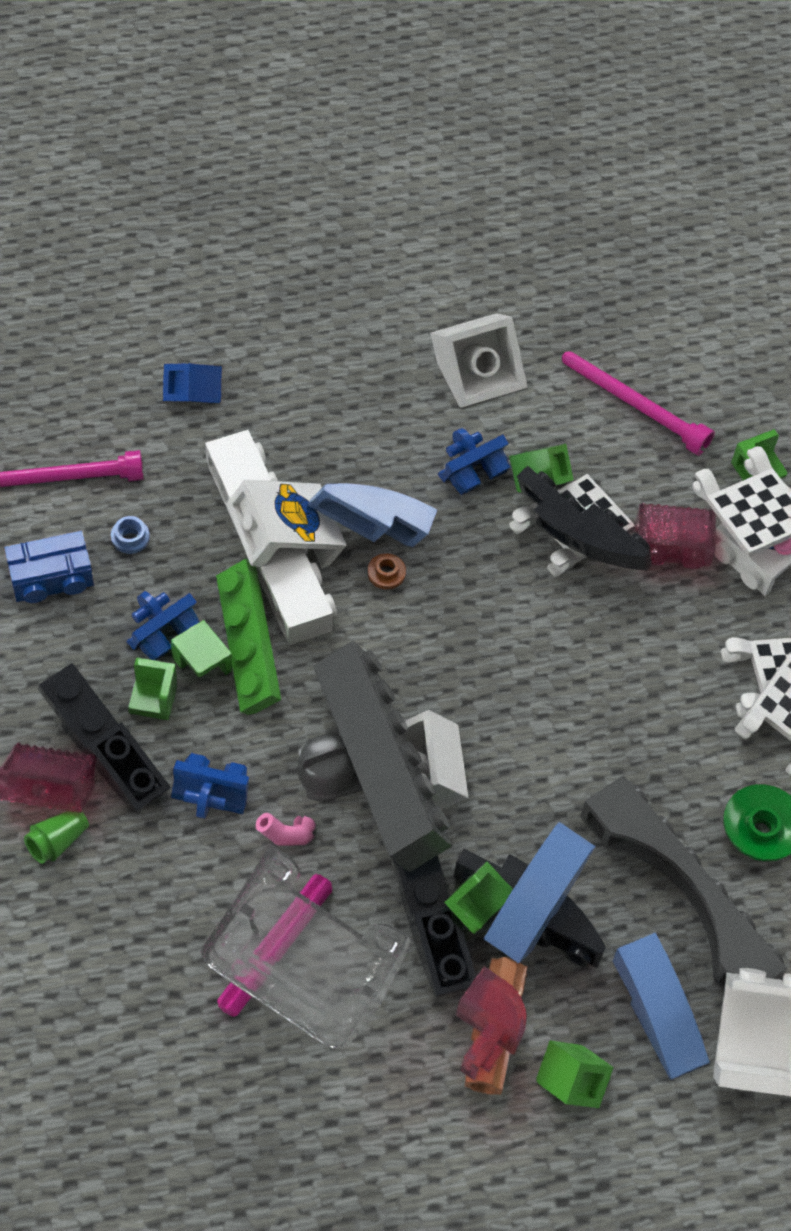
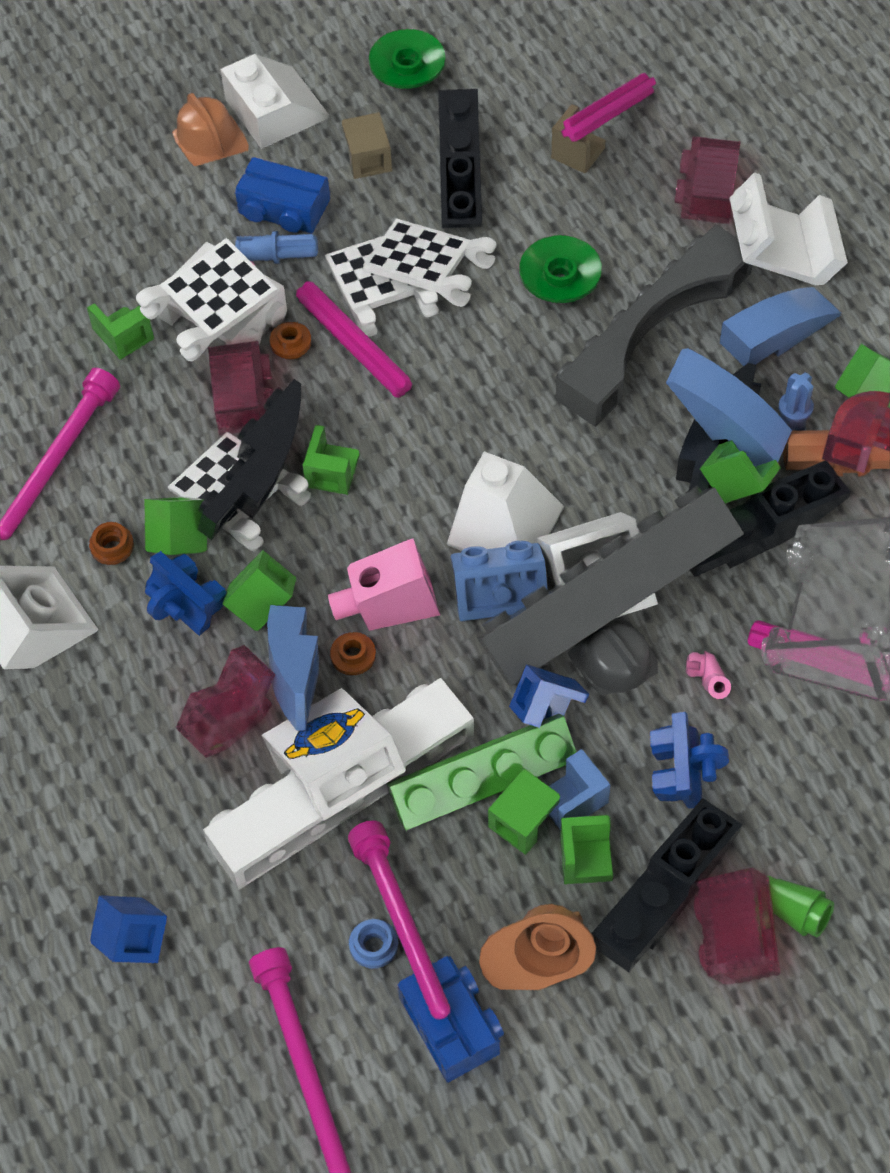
camera: 95 degrees left, 0 degrees up
(83, 637) = (538, 950): none -> nougat piece
(149, 635) = (492, 869): blue hips -> none
(207, 546) = (371, 846): none -> dark pink piece
(209, 699) = (580, 790): none -> medium blue panel
(299, 689) = (544, 695): none -> blue panel
(354, 464) = (229, 709): none -> clear pink brick
(426, 681) = (496, 578): none -> medium blue bracket
(432, 584) = (387, 589): none -> bright pink torso
(462, 515) = (256, 588): none -> bright green panel
(495, 710) = (502, 506): none -> white slope
(540, 416) = (111, 532): none -> dark orange plate
(546, 976) = (796, 403): none -> medium blue axle
(581, 589) = (327, 465): none -> bright green panel
(715, 637) = (354, 339): none -> dark pink axle
(722, 595) = (290, 348): none -> dark orange plate

